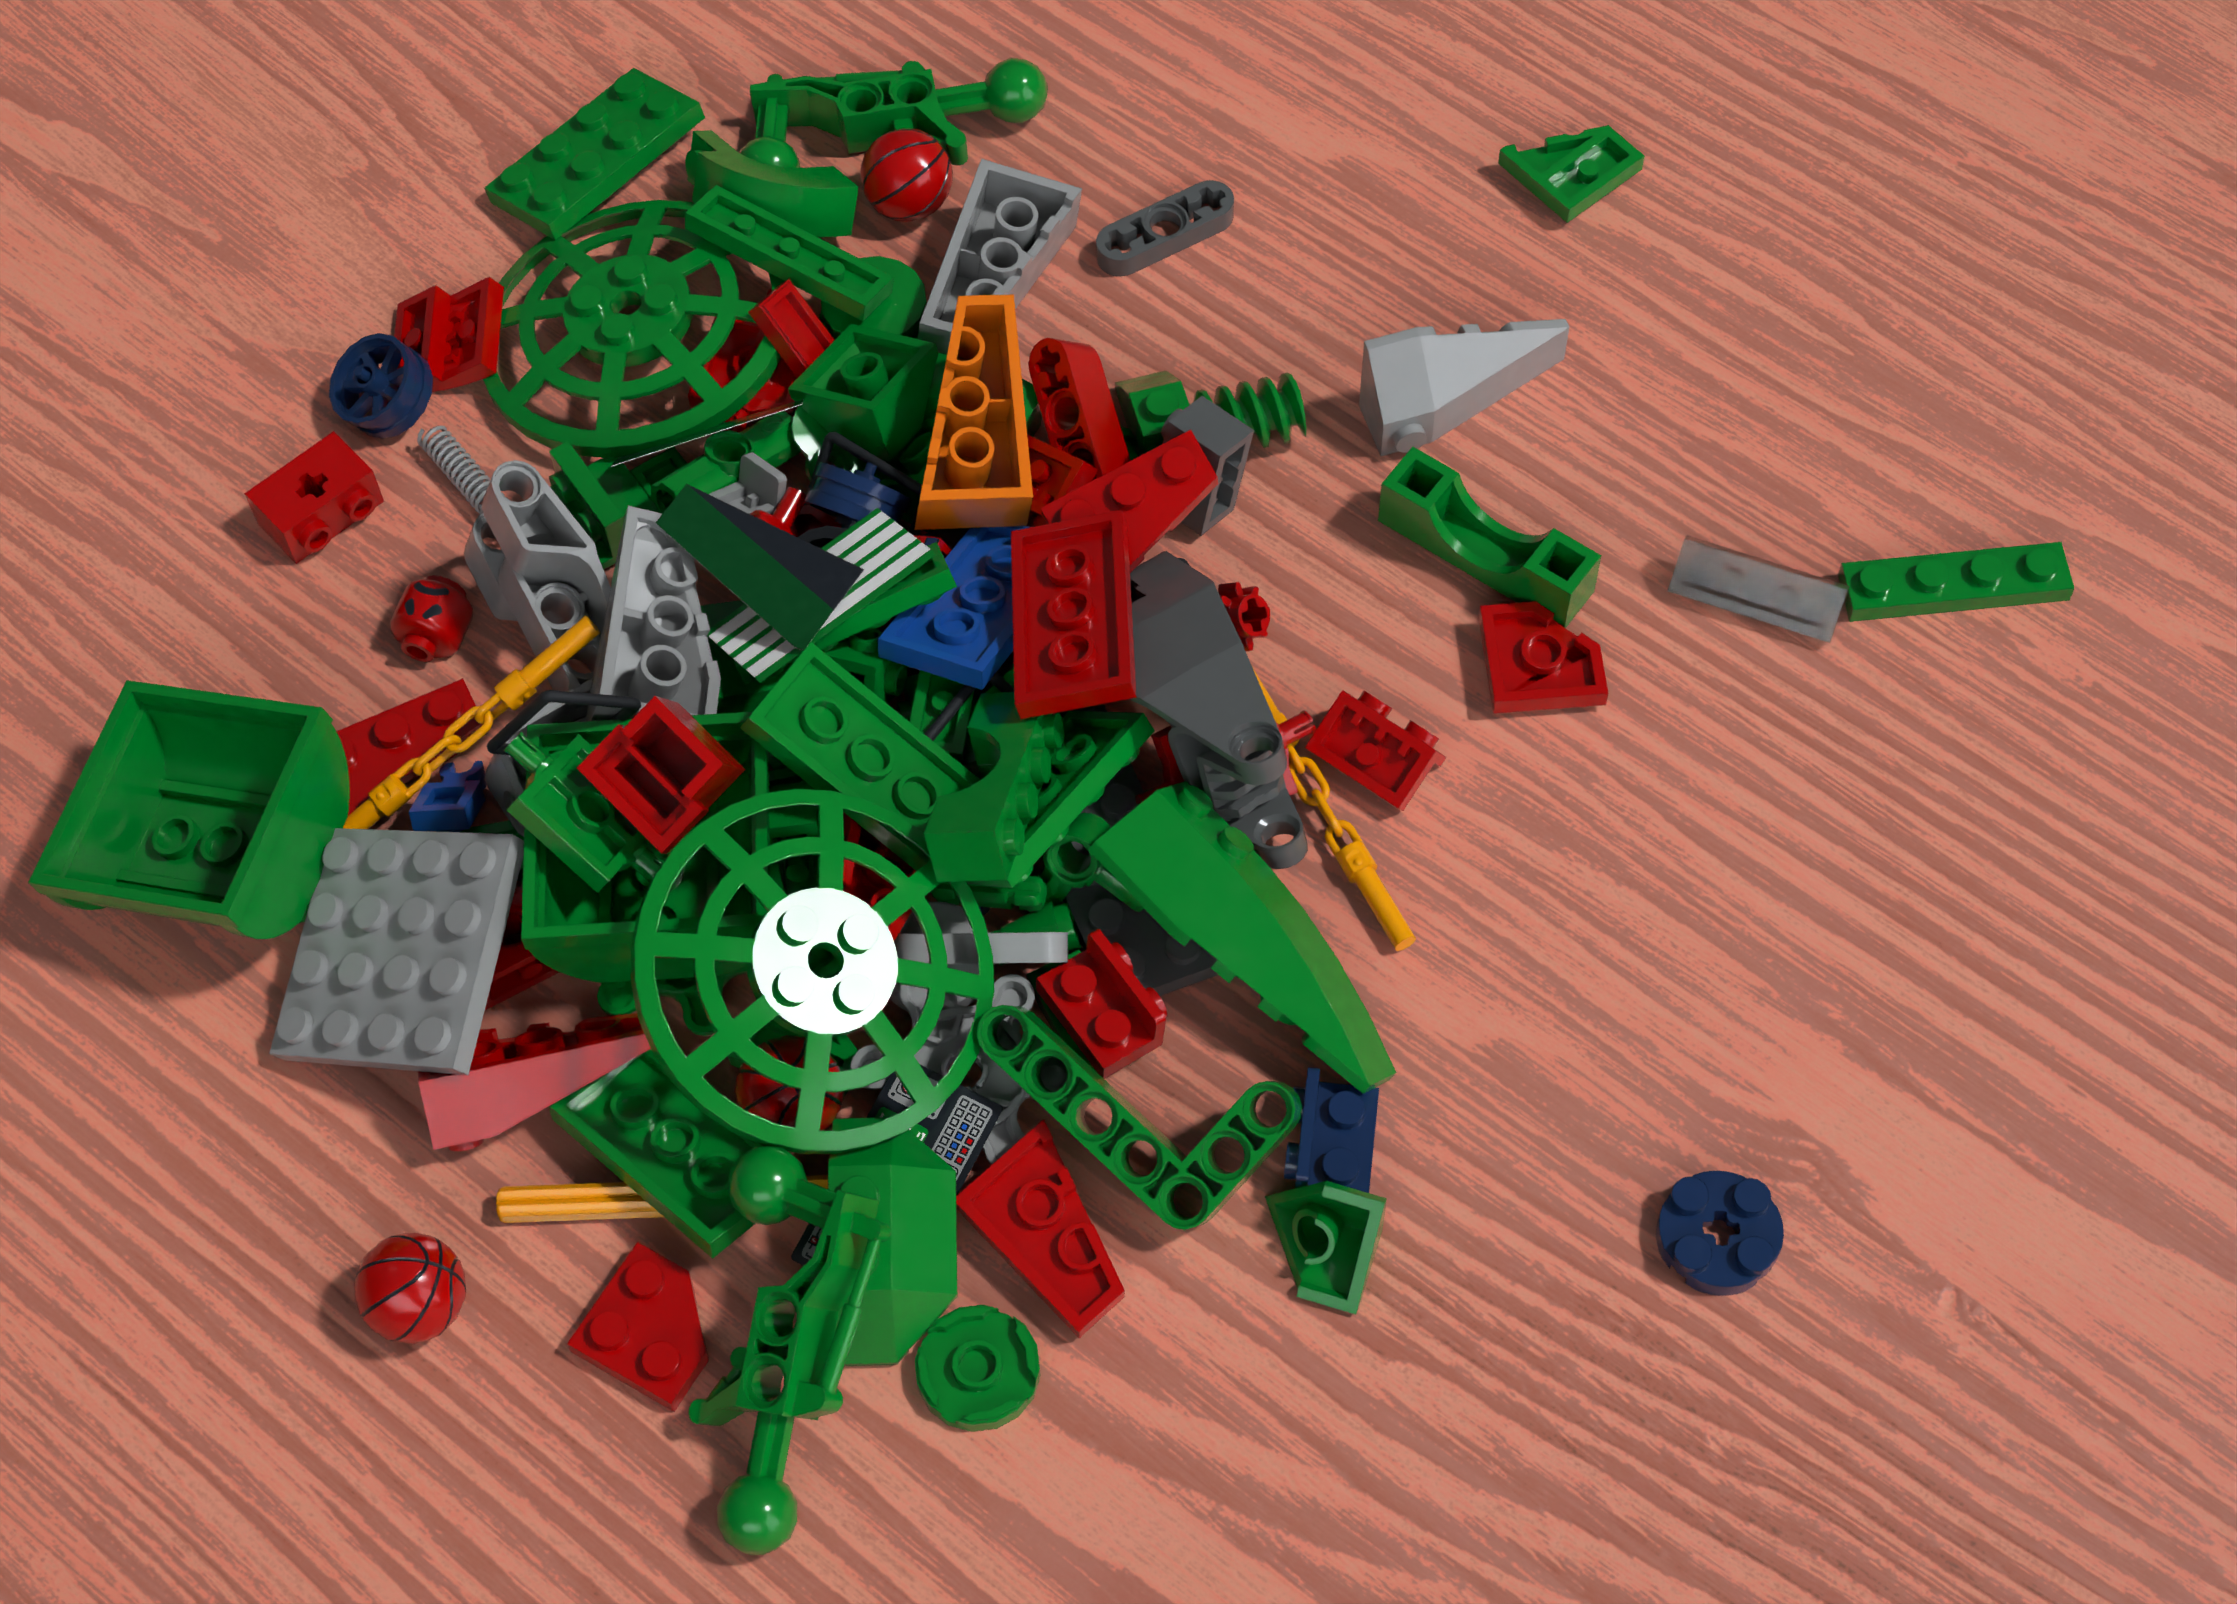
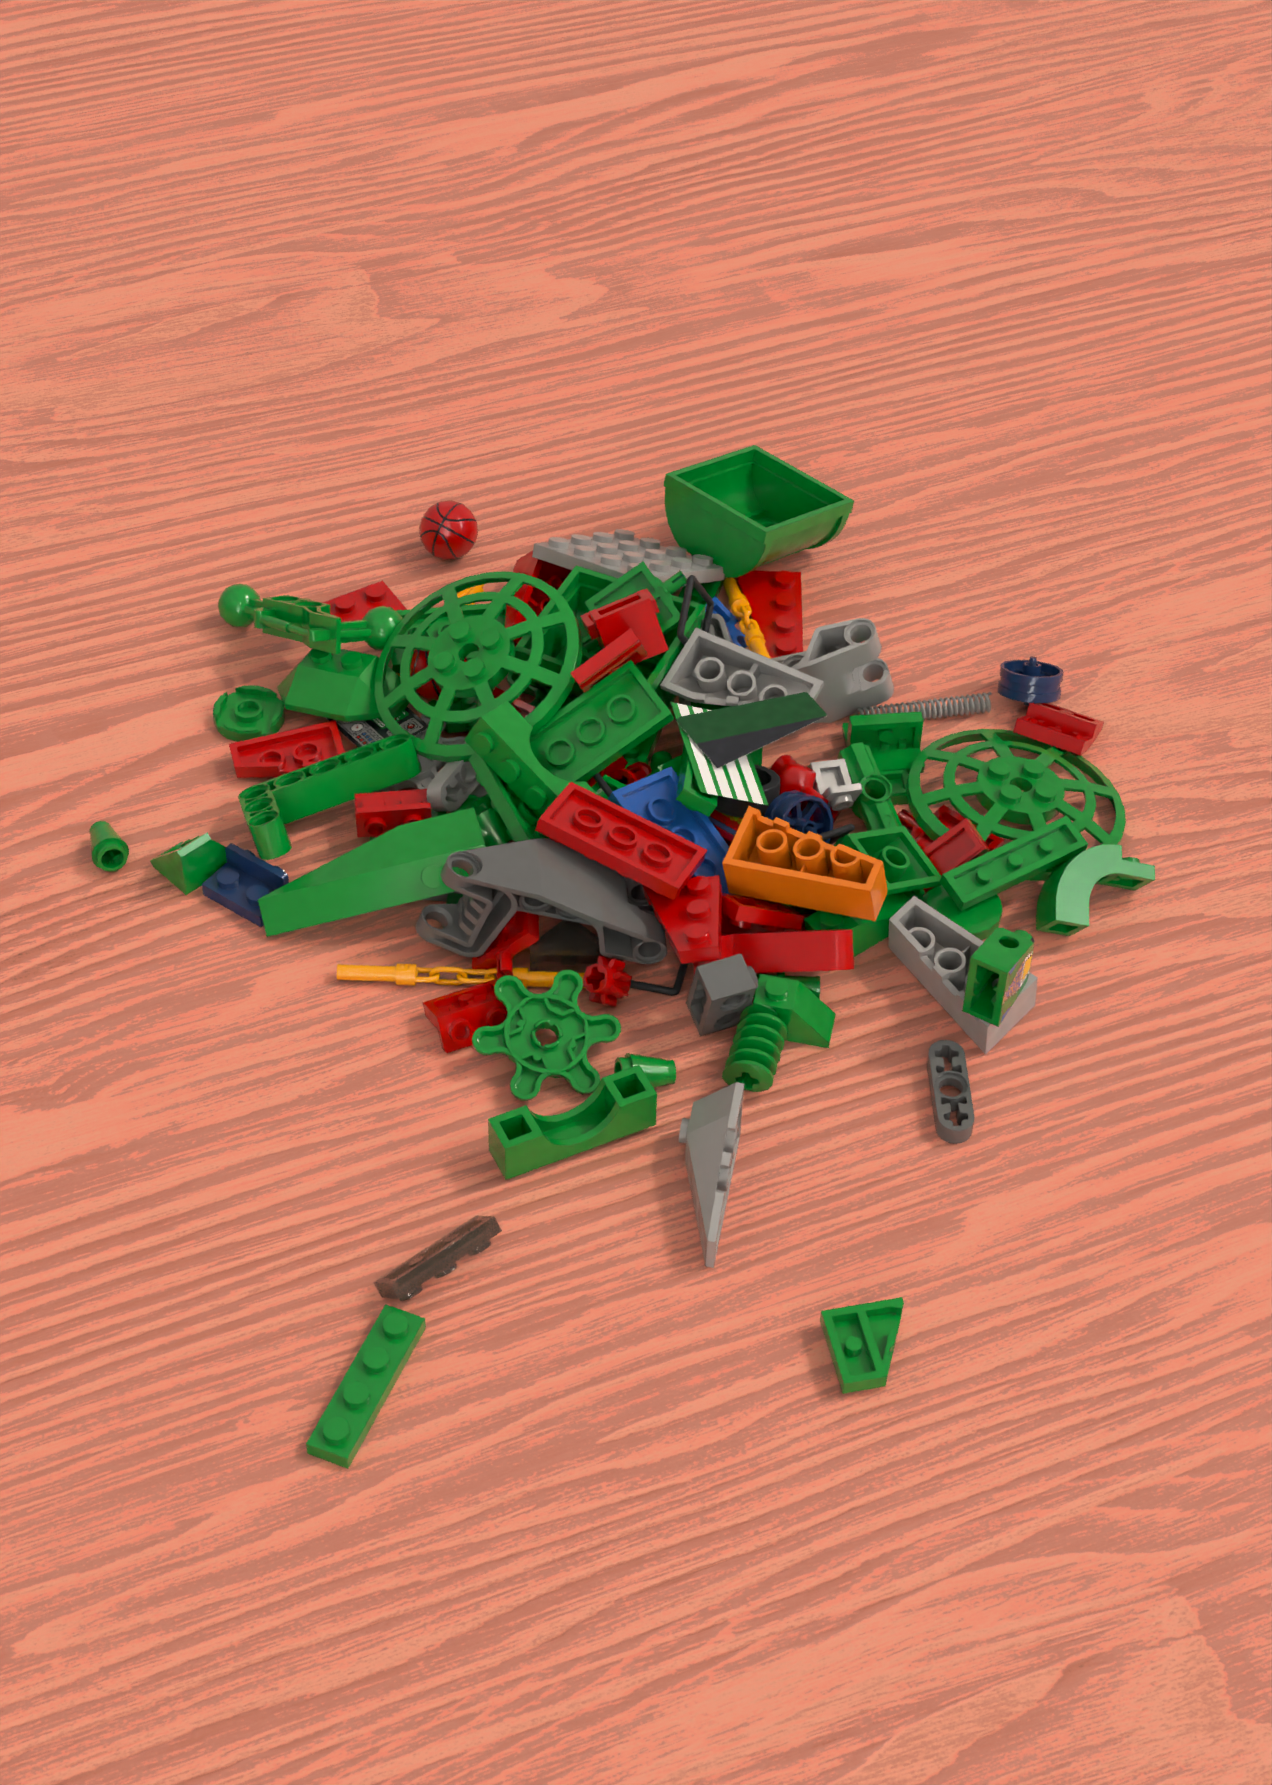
camera: 115 degrees right, 15 degrees down
(315, 497) = (967, 640): red brick -> none
(594, 153) = (1176, 835): green plate -> none
(723, 426) = (890, 788): sticker -> none
(771, 738) = (609, 659): none -> red plate
(874, 103) = (1125, 990): green piece -> none
(906, 175) = (1062, 958): red piece -> none
(1024, 165) = (1000, 956): none -> green torso
(1351, 523) = (658, 1071): none -> green cone
(1378, 1376) = (107, 847): none -> green cone
(1387, 609) = (554, 1011): none -> green plate
(1538, 661) = (462, 1117): red plate -> none
(1744, 1207) = (56, 1006): dark blue plate -> none

